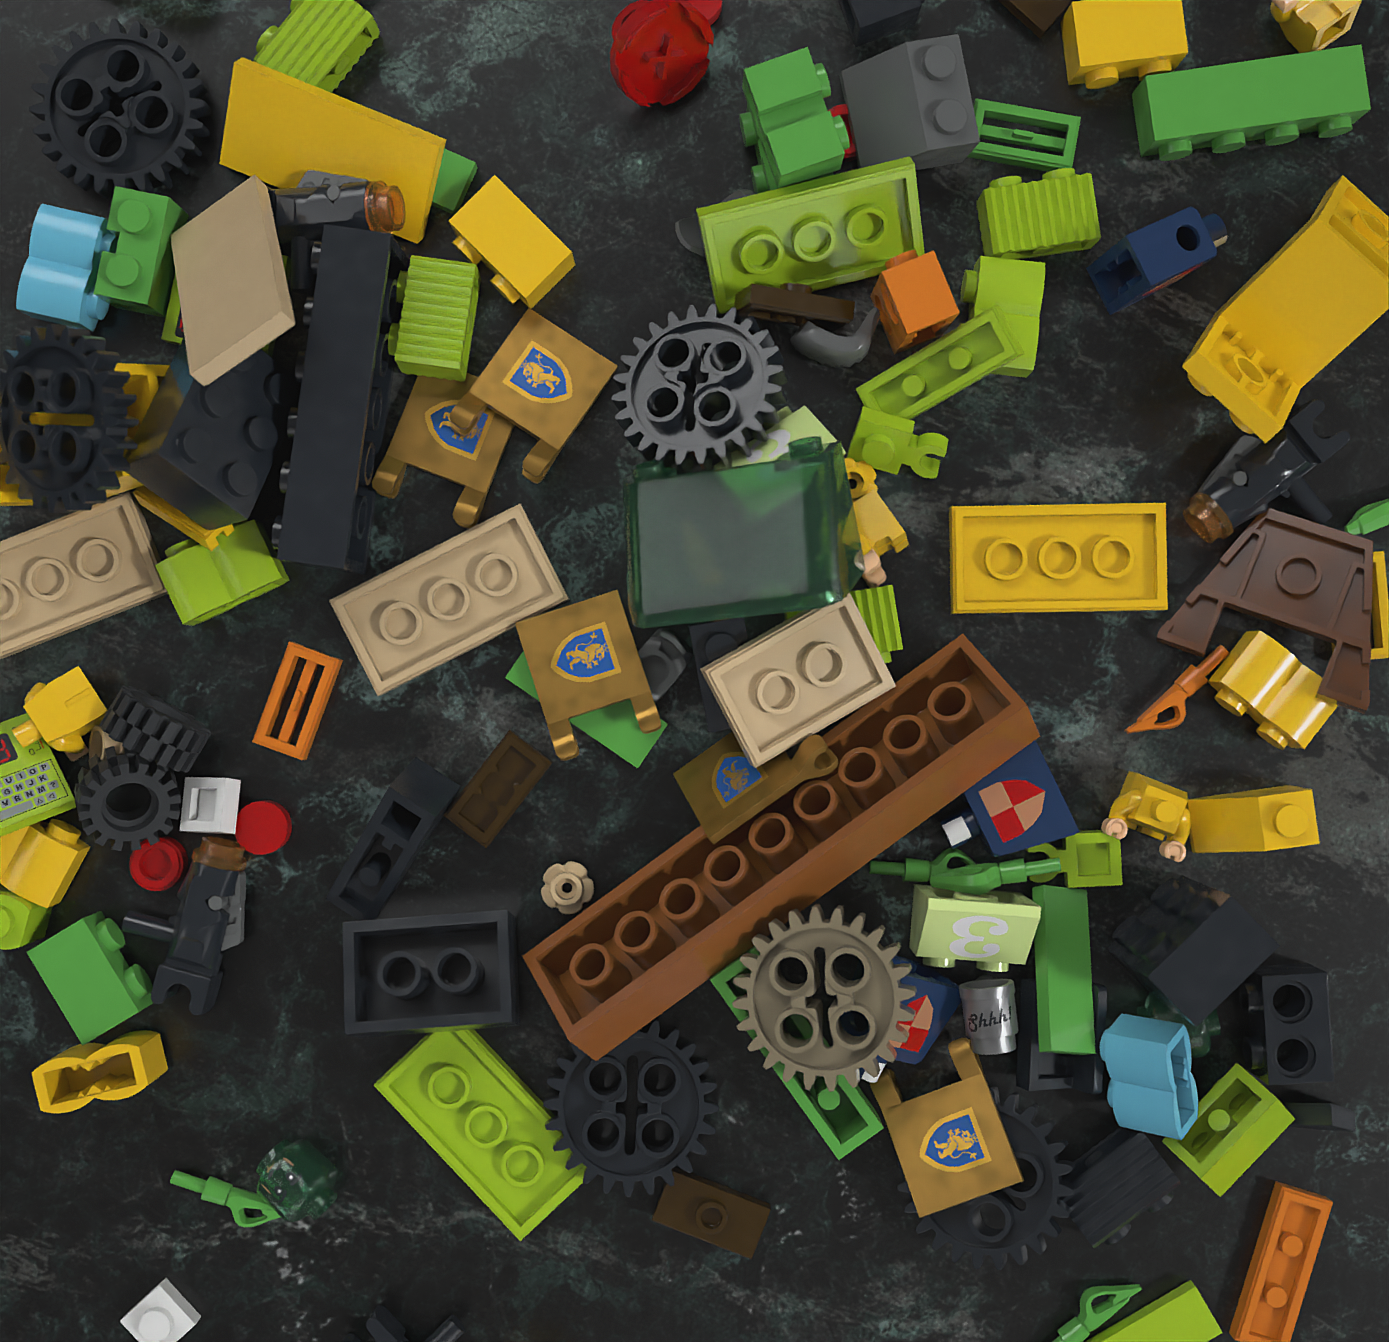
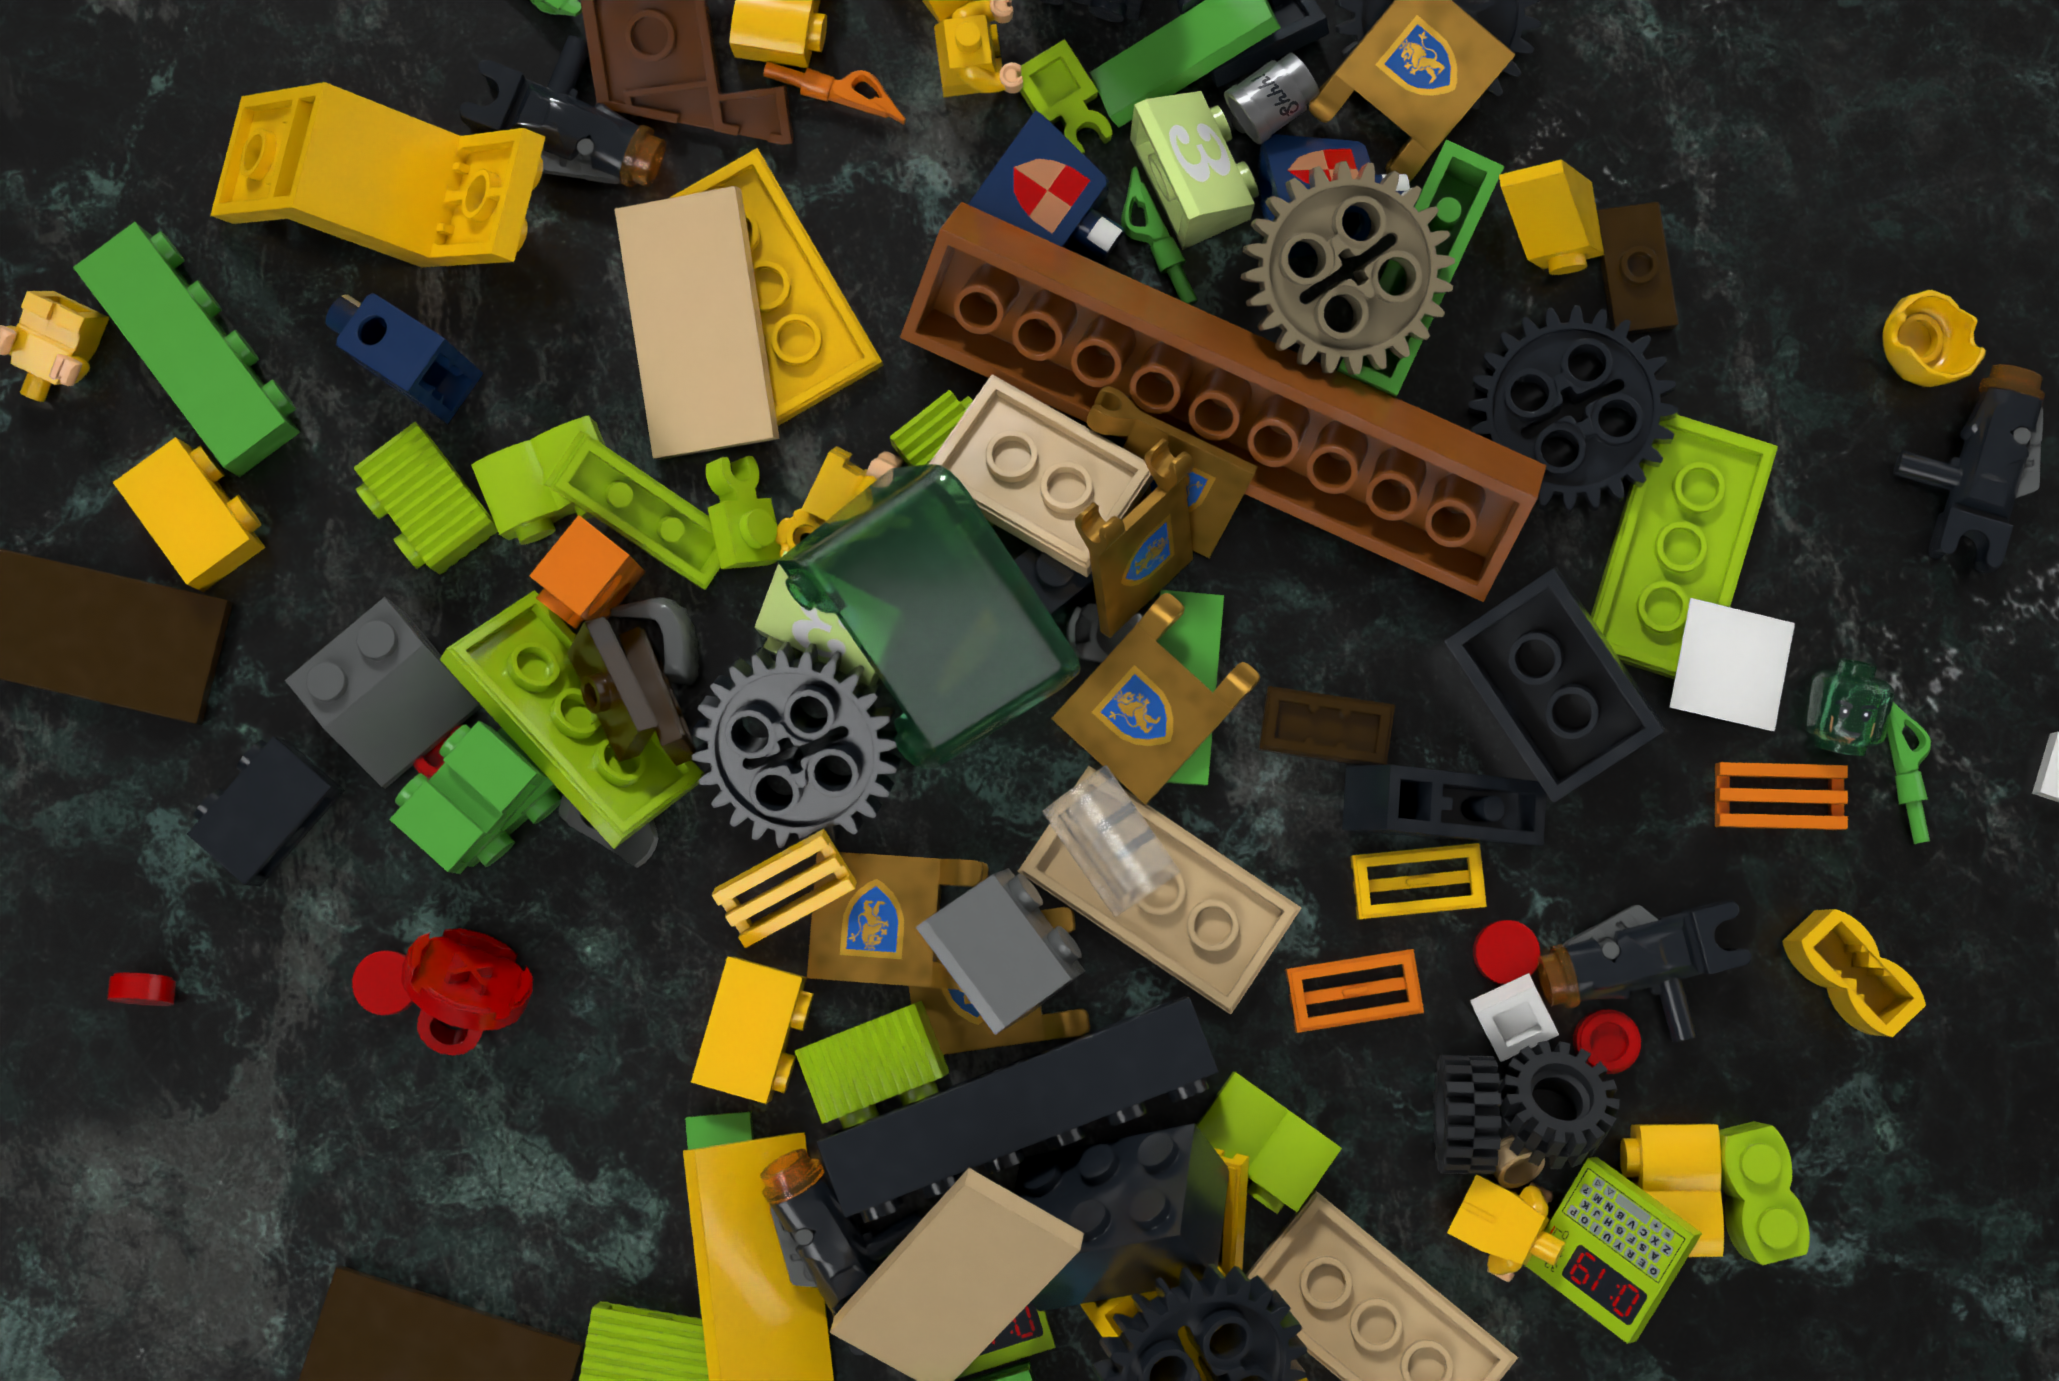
camera: 120 degrees left, 5 degrees down
(92, 976) = (1763, 1039): bright green brick -> none
(240, 1131) = (1834, 796): none -> orange tile
(331, 783) = (1364, 887): none -> yellow tile
(378, 1113) = (1732, 665): none -> white sticker
(460, 452) = (1003, 949): none -> dark grey slope
(499, 582) = (1110, 841): none -> clear brick
(569, 873) = (1385, 617): tan plate -> none
(582, 322) = (739, 914): none -> yellow tile
(700, 726) = (1144, 549): none -> pearl gold flag
(781, 1175) = (1554, 215): none -> yellow slope
(817, 273) = (612, 689): none -> dark brown plate
(984, 877) = (1134, 179): bright green hand -> none
(1027, 116) = (331, 512): bright green tile -> none
(1059, 491) = (697, 323): none -> tan tile

